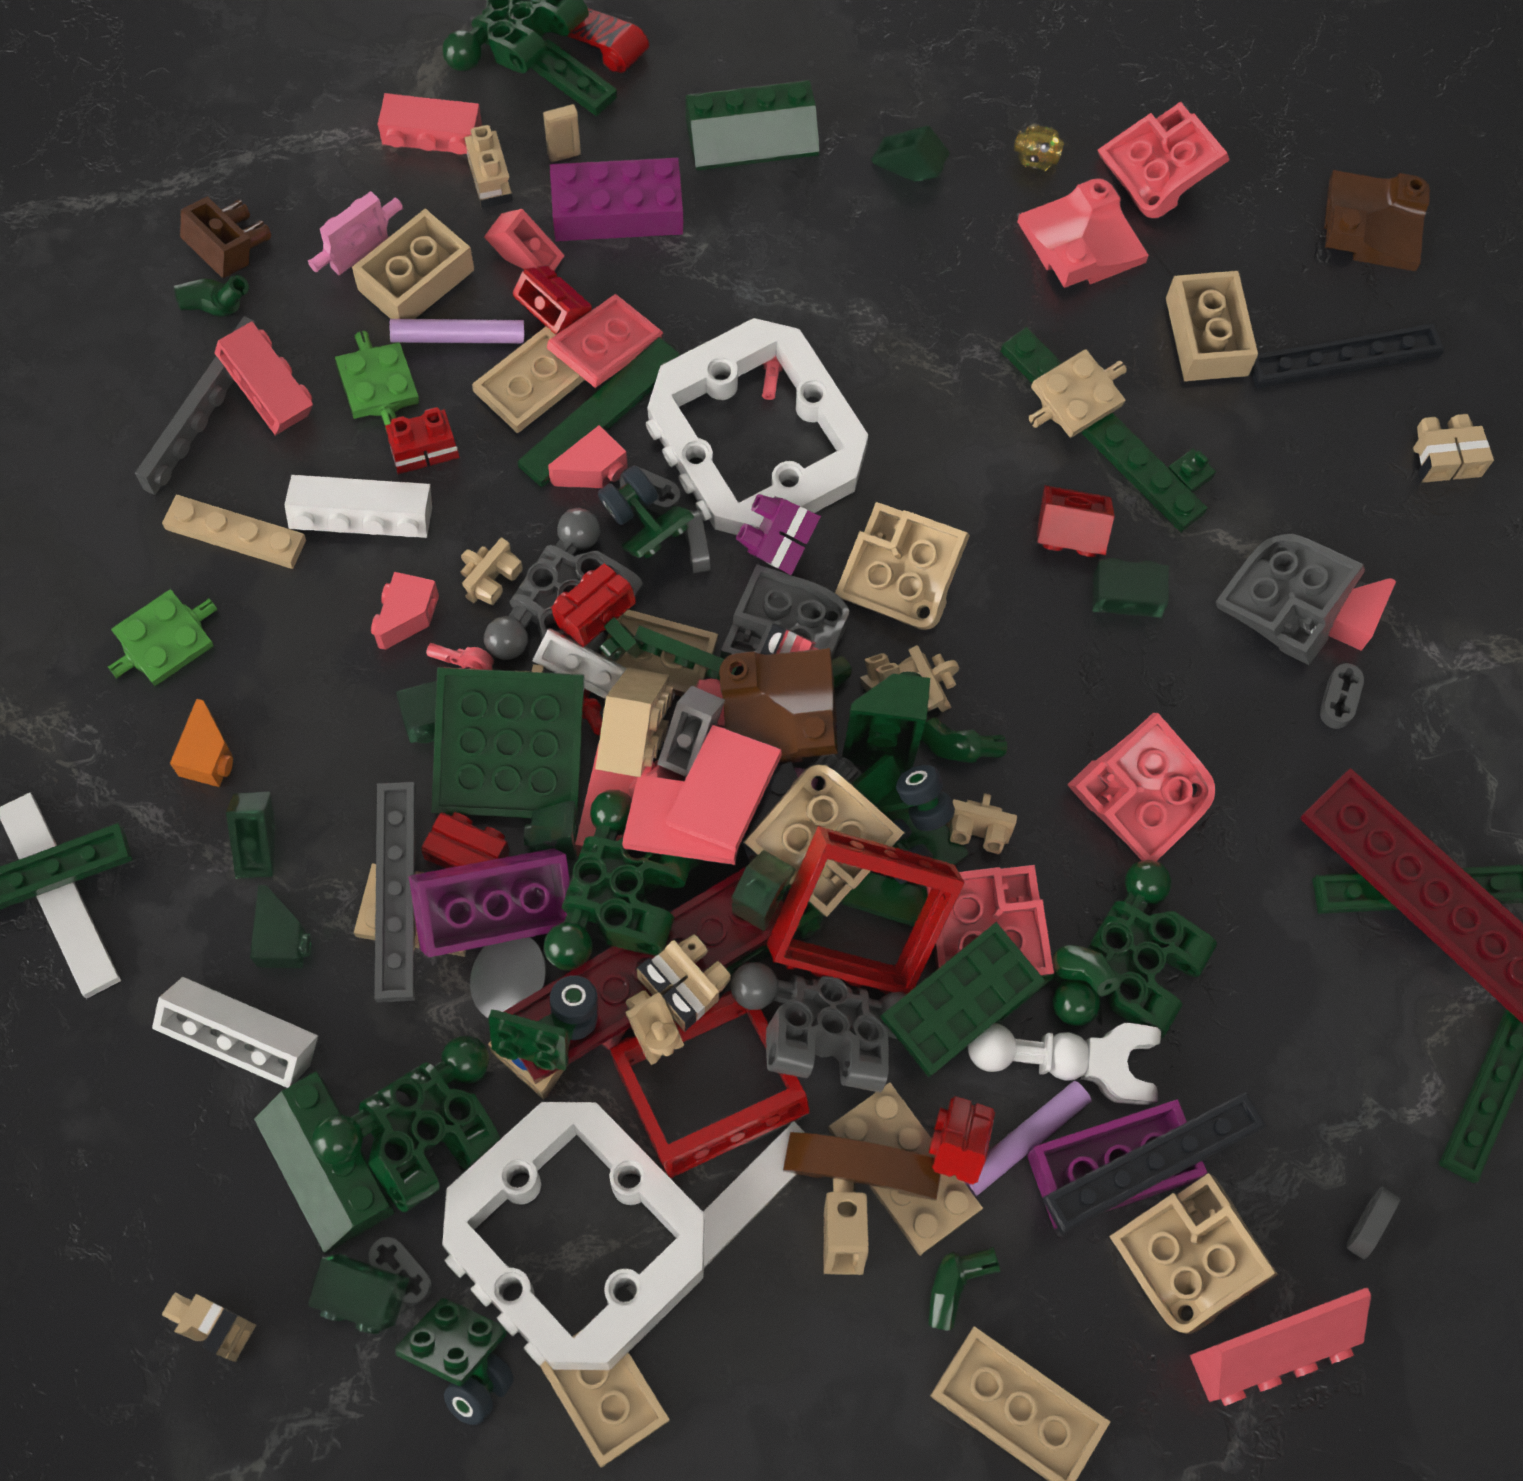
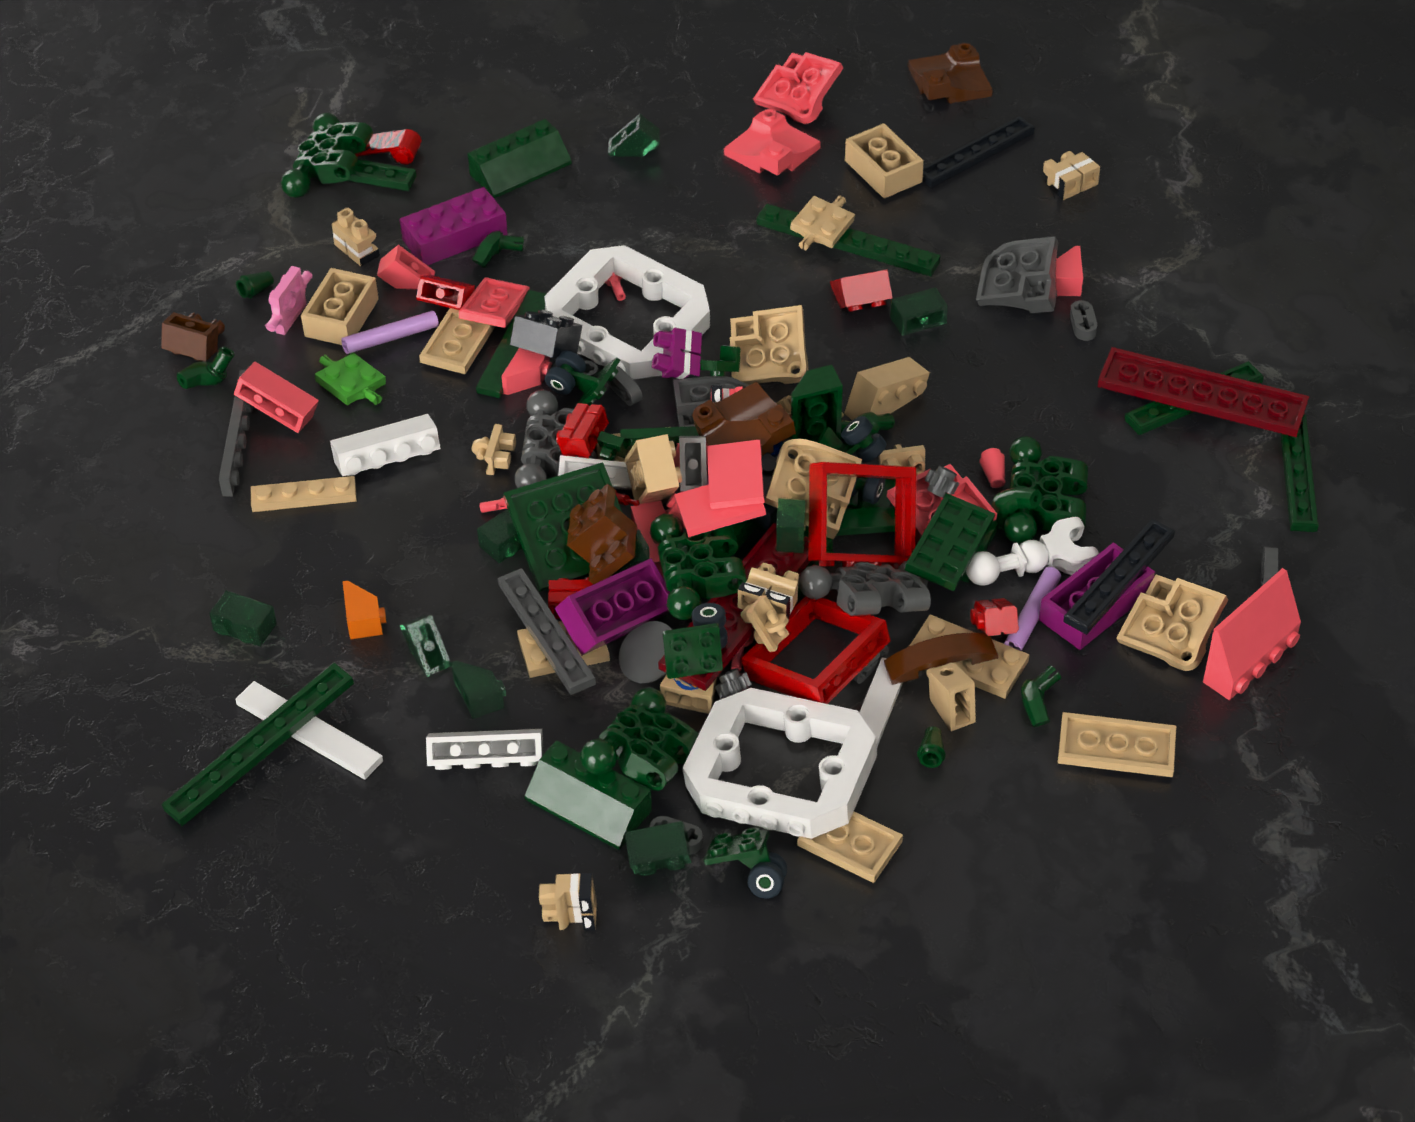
camera: 20 degrees left, 20 degrees down
(63, 693) = (243, 618): none -> clear green brick
(162, 637) = (291, 567): bright green plate -> none
(337, 184) = (252, 284): none -> dark green cone
(405, 609) = (453, 489): coral slope -> none
(423, 433) = (405, 395): red hips -> none
(427, 123) = (297, 229): coral brick -> none
(523, 789) = (602, 534): none -> reddish brown bracket
(562, 133) = (396, 200): tan tile -> none
(584, 1079) = (732, 683): none -> dark grey gear
(628, 431) = (546, 333): none -> brick
(649, 248) = (493, 244): none -> dark green arm
(780, 1296) = (931, 750): none -> dark green cone
(827, 571) = (728, 361): none -> dark green bracket
(998, 903) = (941, 481): none -> dark grey gear
(1020, 699) = (886, 387): none -> tan wedge
(1038, 146) = (715, 108): clear yellow head -> none
(1096, 884) = (993, 465): none -> coral cone
(1147, 788) = (993, 402): coral slope -> none
(1193, 469) = (919, 238): dark green tile -> none

